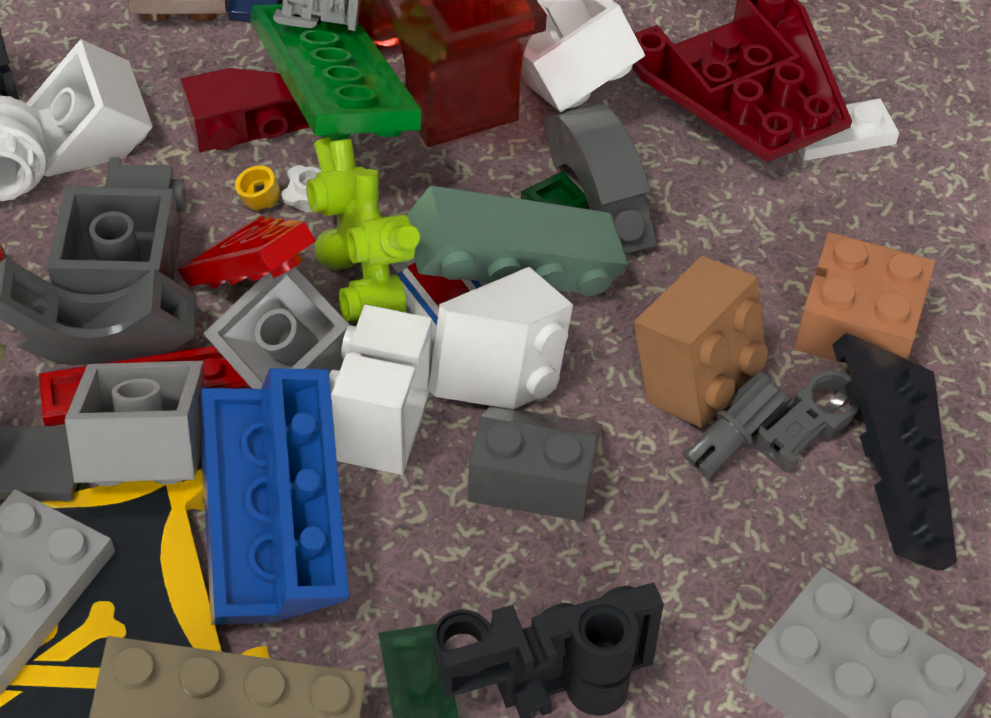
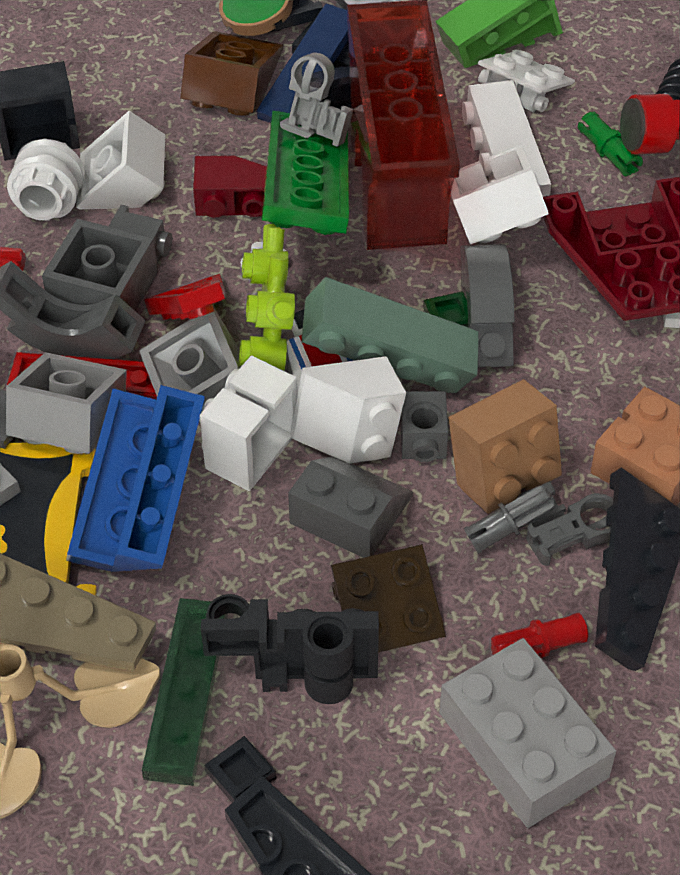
camera: 20 degrees right, 0 degrees up
(247, 190) = (218, 254): yellow hinge -> none
(593, 345) = (424, 426): none -> dark grey brick
(632, 547) = (398, 588): none -> dark brown hinge
(834, 554) = (546, 635): none -> red axle

